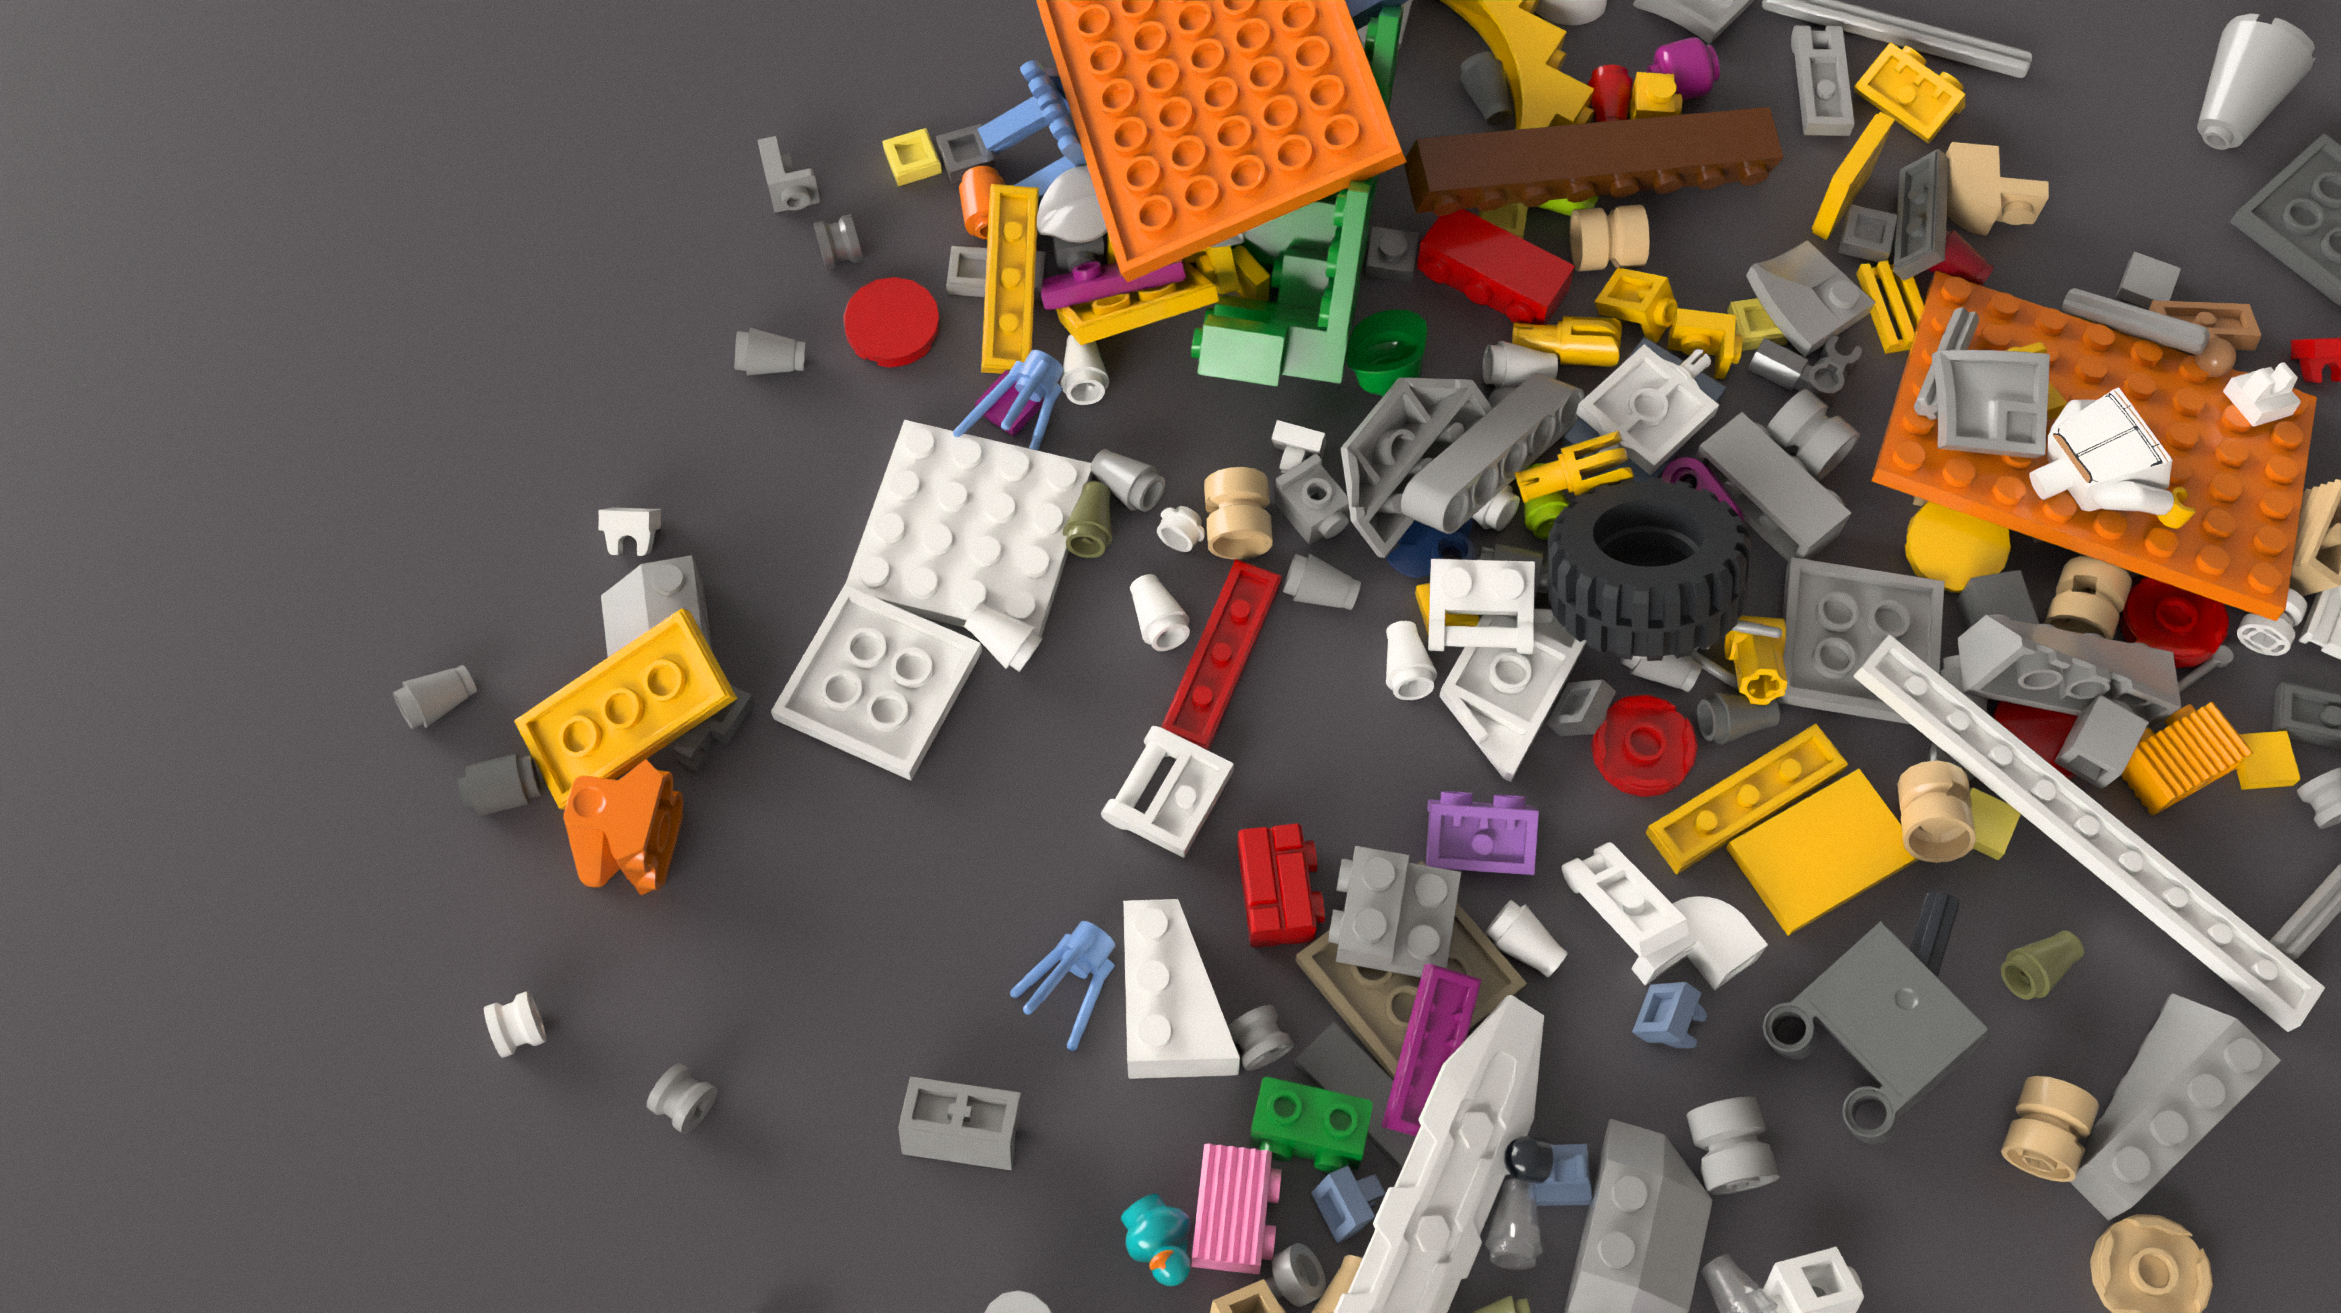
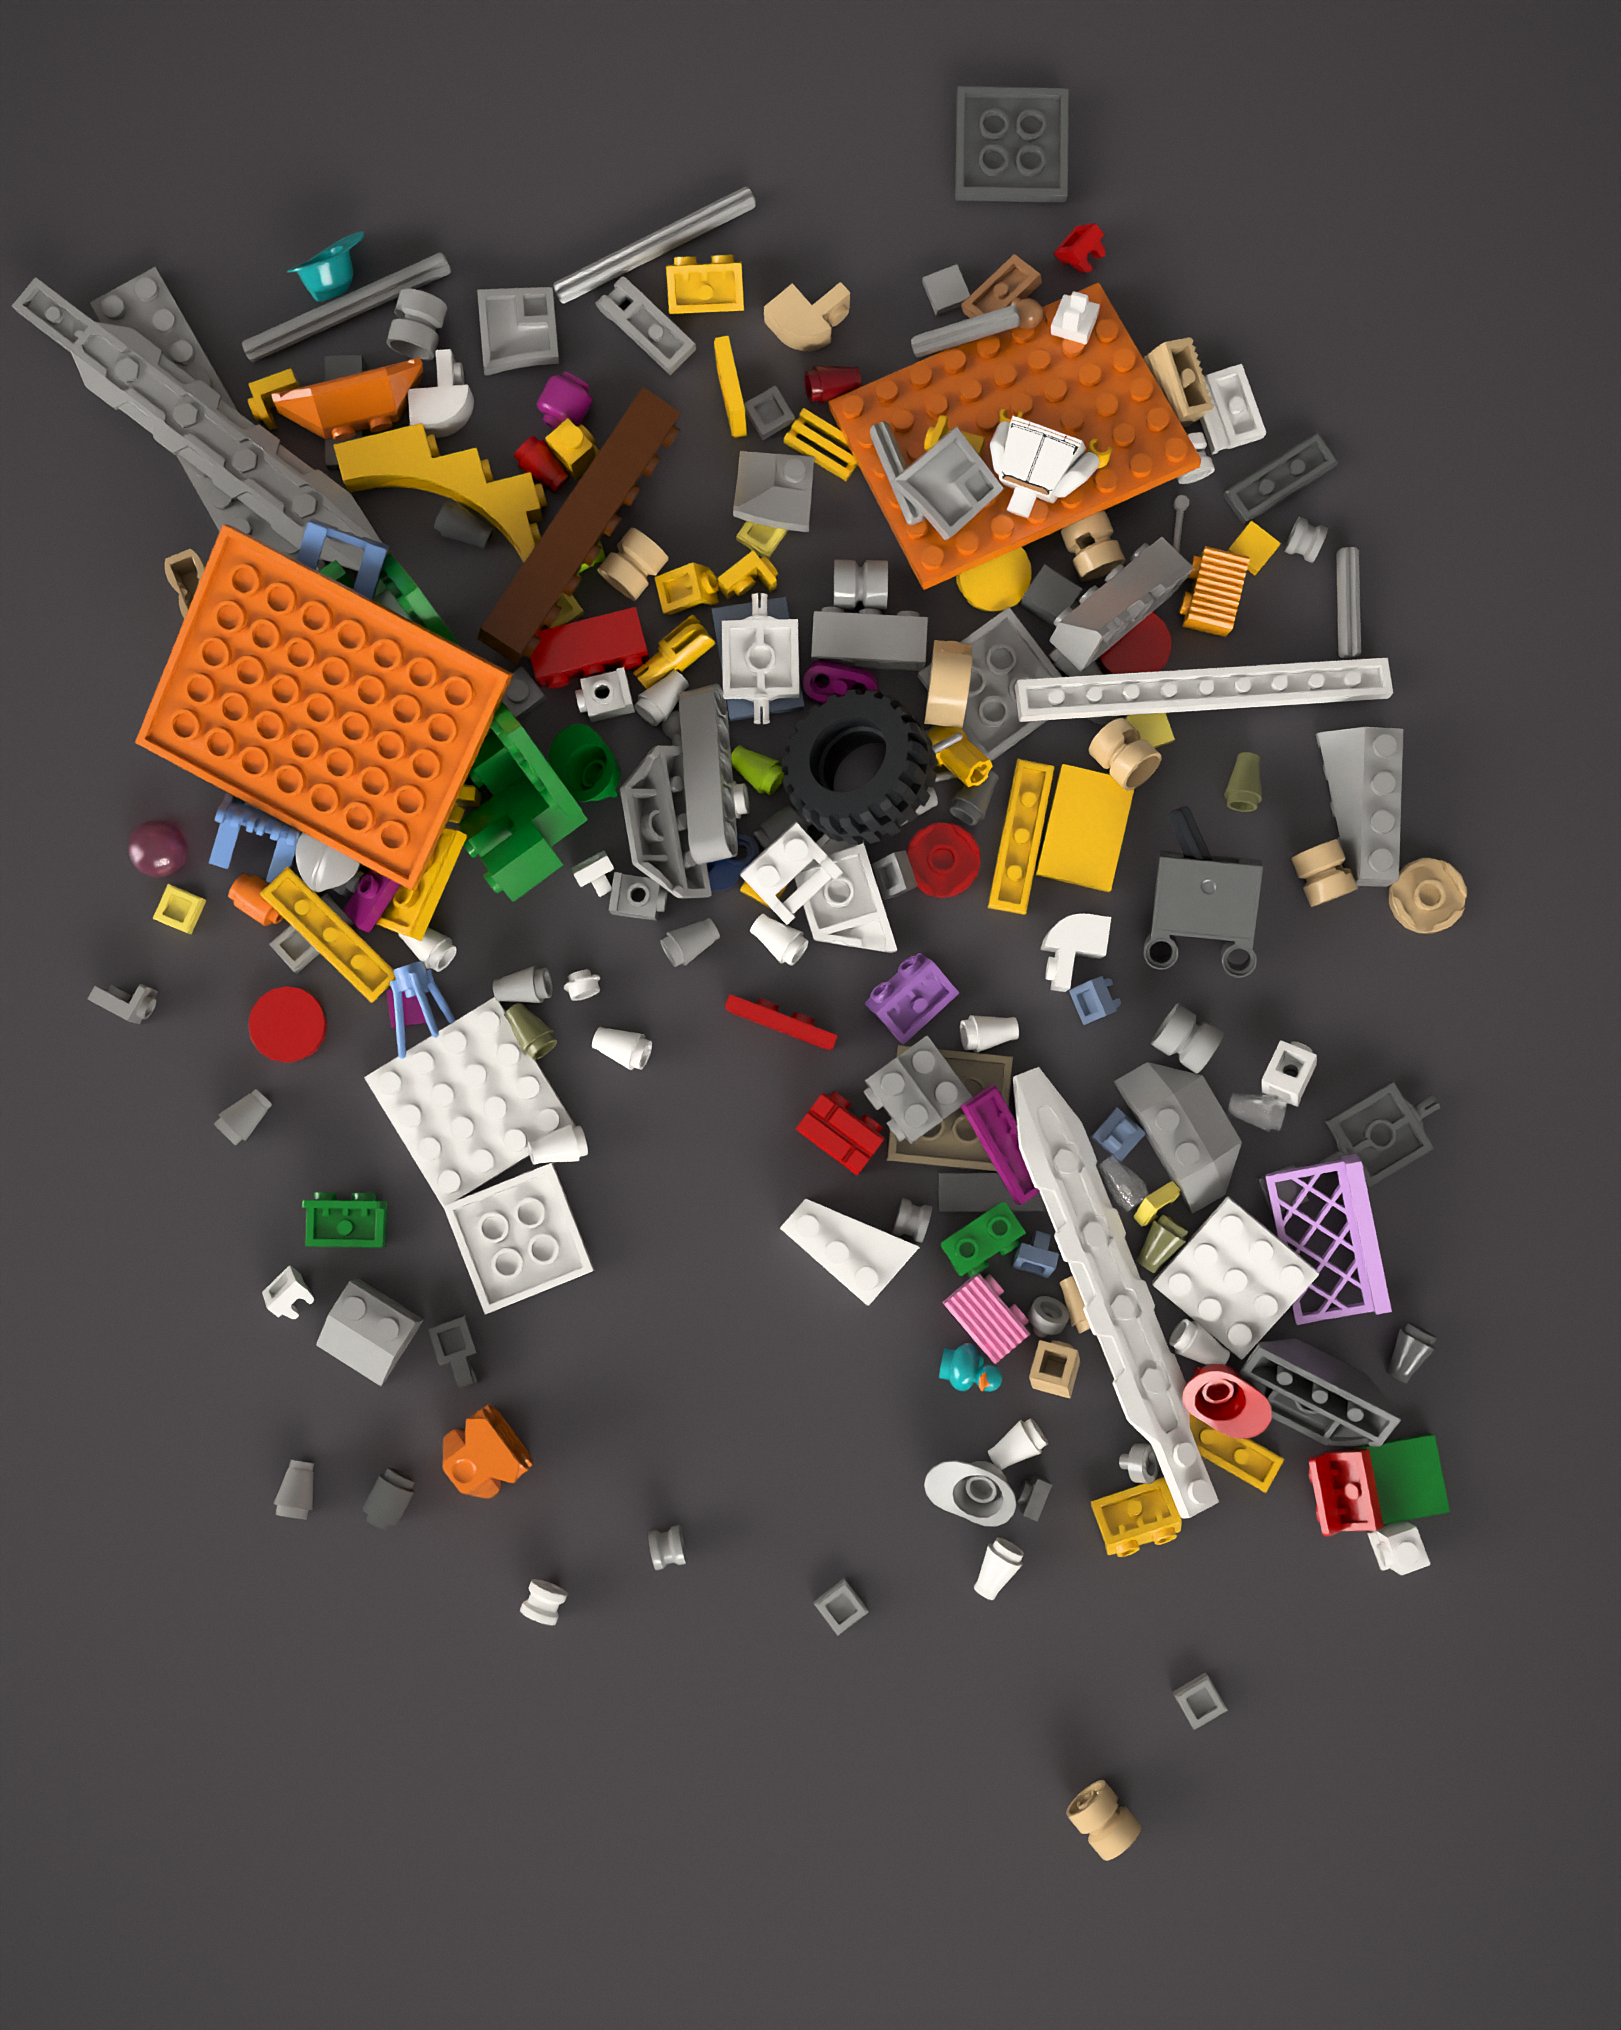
camera: 50 degrees left, 20 degrees up
(626, 706) = (412, 1396): yellow tile -> none
(750, 515) = (345, 1222): none -> green bracket
(838, 241) = (203, 1009): flat silver wheel -> none
(950, 95) = (157, 848): none -> clear pink hair
(959, 1123) = (814, 1415): light grey hinge -> none
(963, 151) = (210, 879): flat silver plate -> none
(1081, 954) = (782, 1268): medium blue plant -> none
(1182, 799) = (744, 1135): white plate -> none
(1222, 654) = (679, 1034): red tile -> none
(1237, 514) = (608, 949): tan wheel -> none
(1323, 714) = (766, 1014): none -> red plate
(1468, 319) = (615, 704): none -> white brick
(1529, 1159) = (1101, 1148): black hinge -> none
(1531, 1277) = (1147, 1211): none -> light yellow tile
(1567, 471) = (760, 747): yellow arm -> none
(1626, 900) = (1021, 964): white plate -> none
(1792, 371) = (831, 543): flat silver bar -> none
(1812, 580) = (948, 684): none -> tan brick
(1921, 215) = (789, 373): dark grey tile -> none
(2101, 741) = (1172, 629): light grey brick -> none
(2174, 621) = (1145, 515): red tile -> none
(2251, 77) = (888, 90): light grey cone -> none

